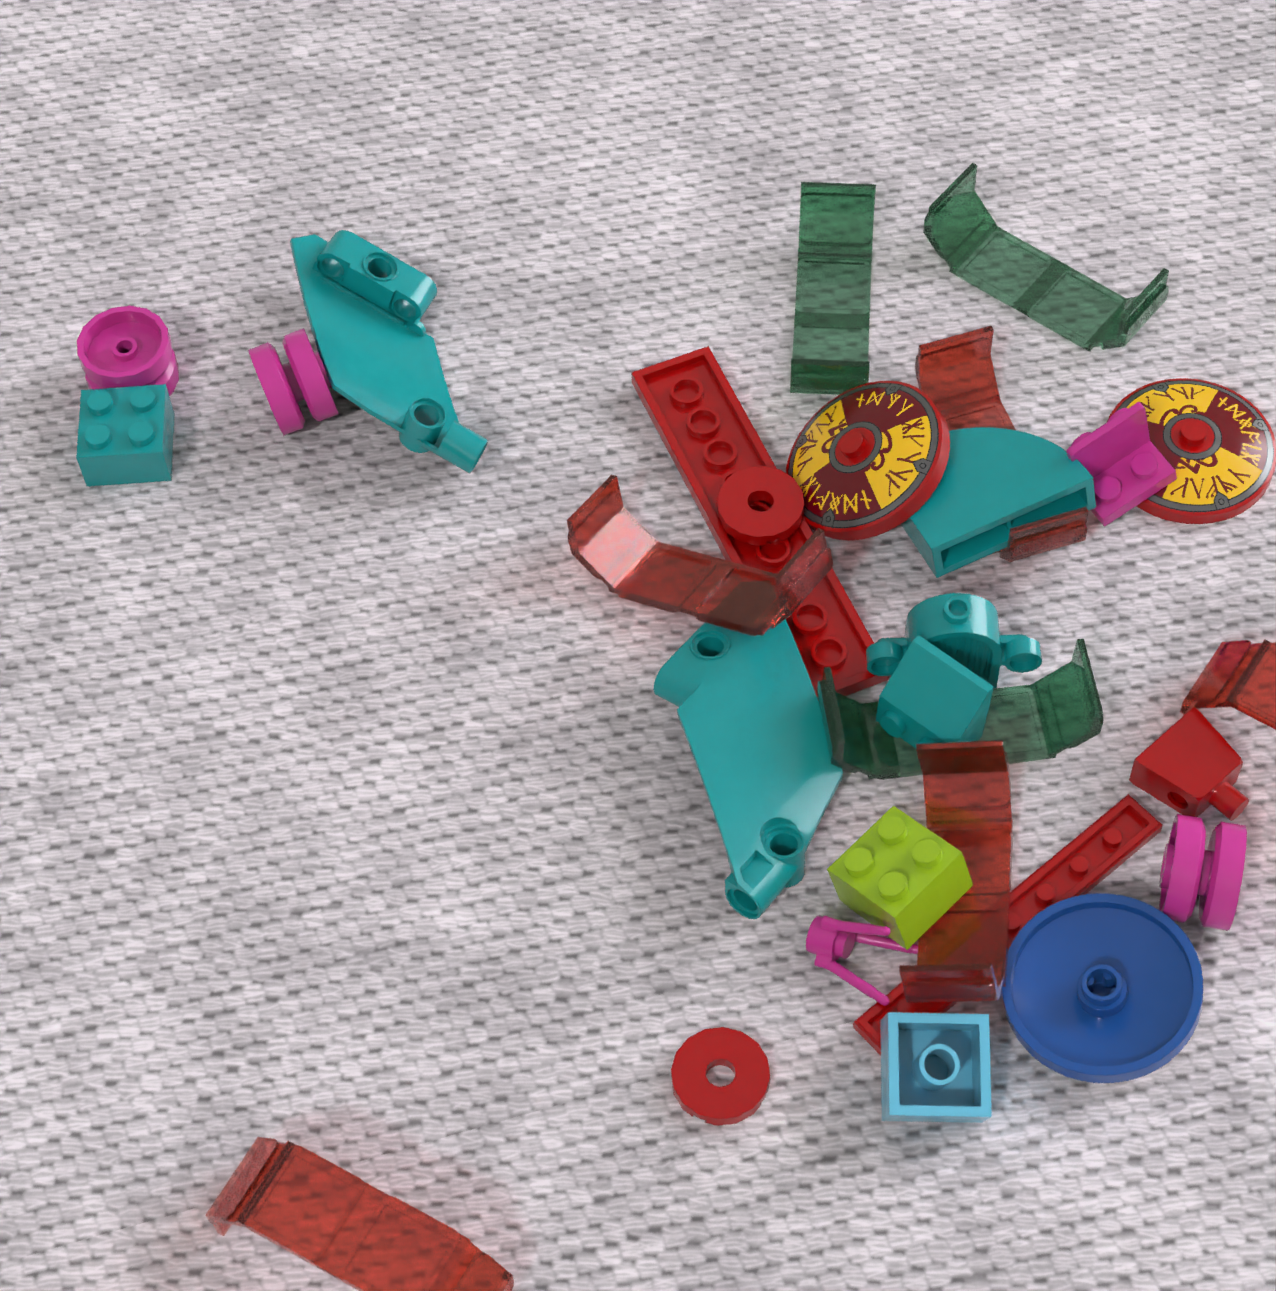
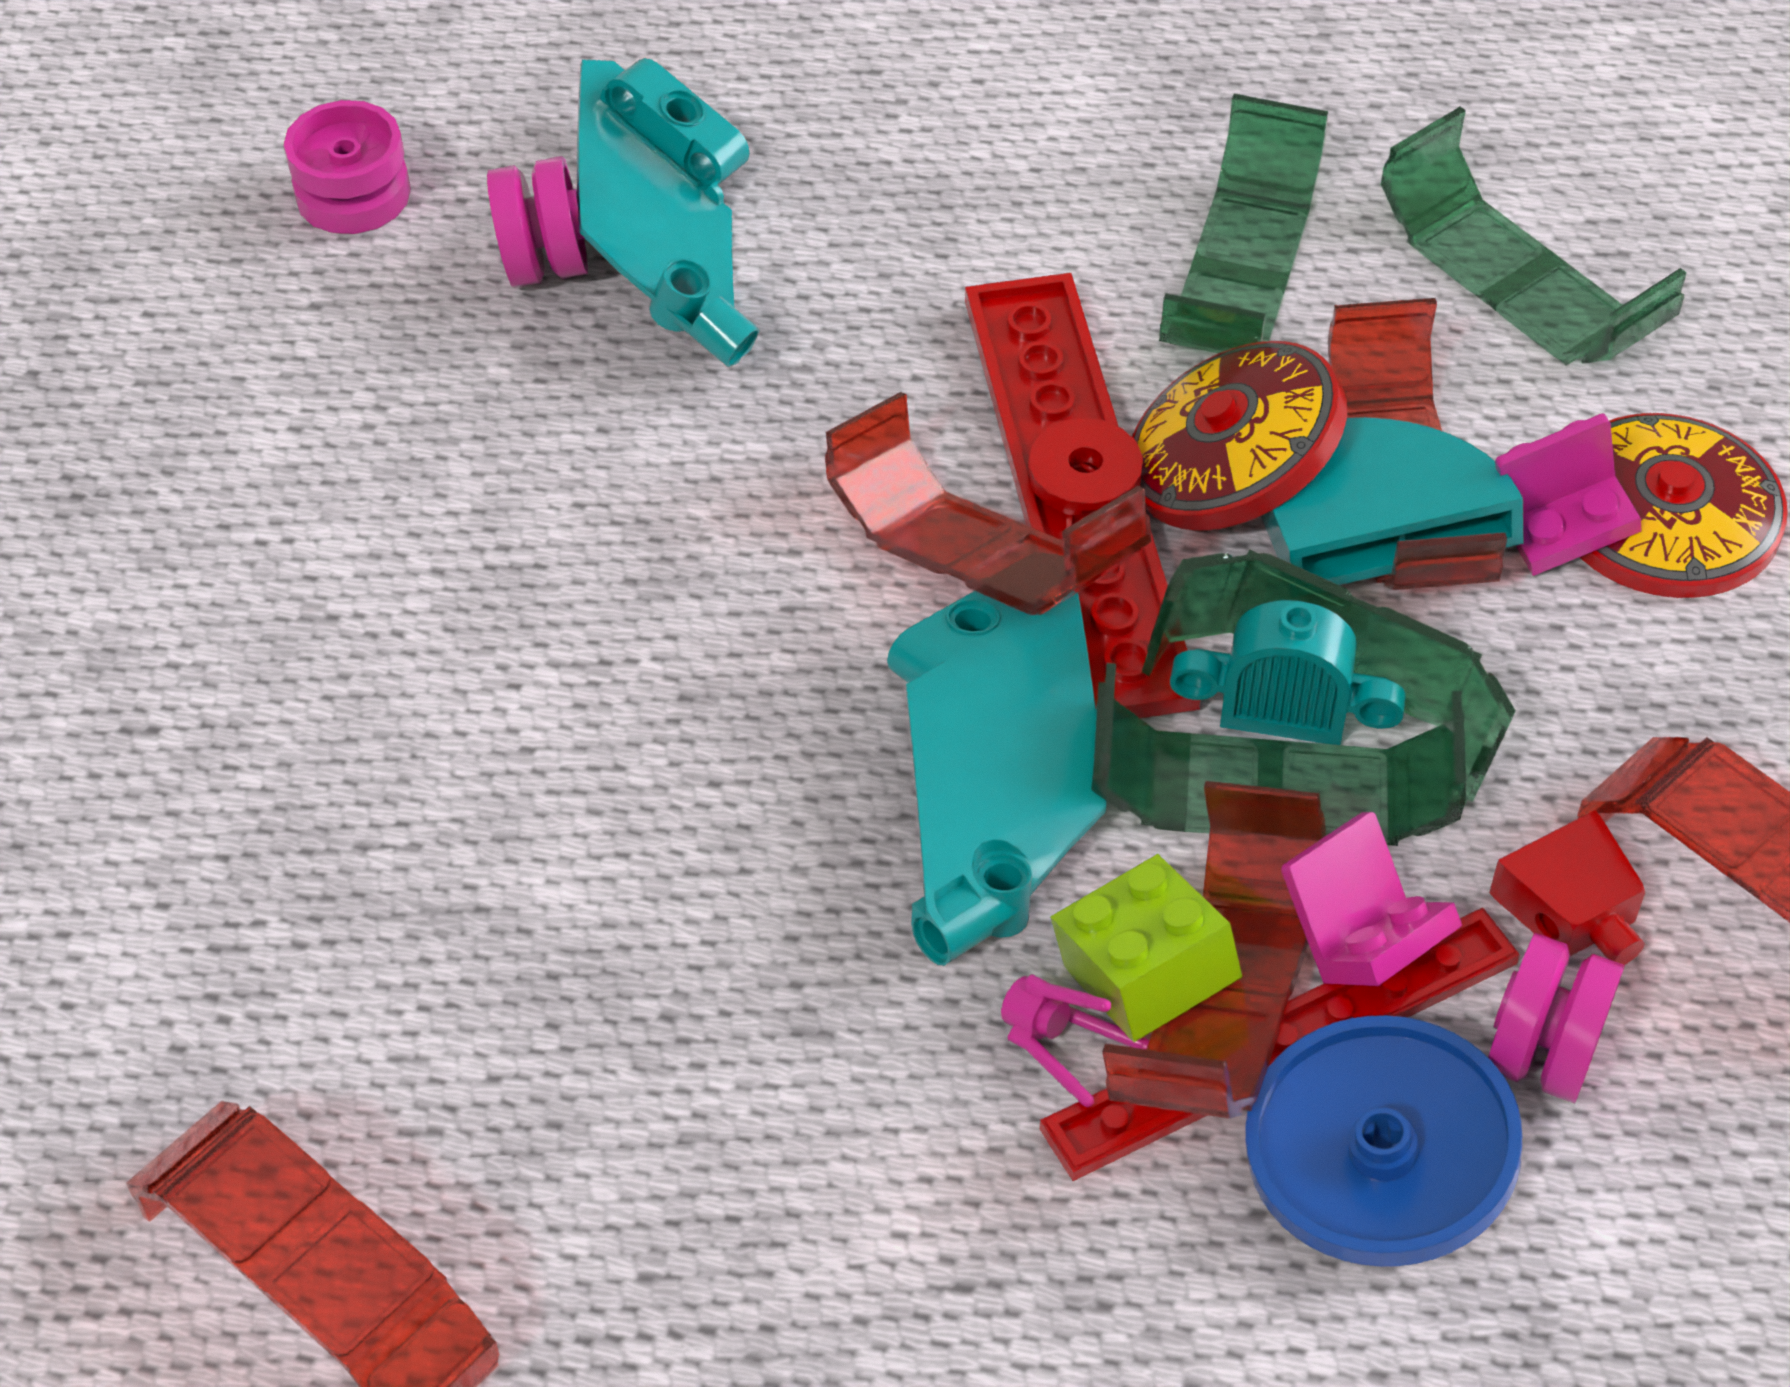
camera: 10 degrees right, 5 degrees down
(125, 435) = (319, 252): teal brick -> none
(724, 1103) = (844, 1189): red tile -> none
(933, 698) = (1245, 729): teal slope -> none
(935, 1067) = (1130, 1194): medium azure brick -> none
(1039, 614) = (1217, 589): none -> clear green windscreen
(1043, 819) = (1357, 908): none -> dark pink bracket

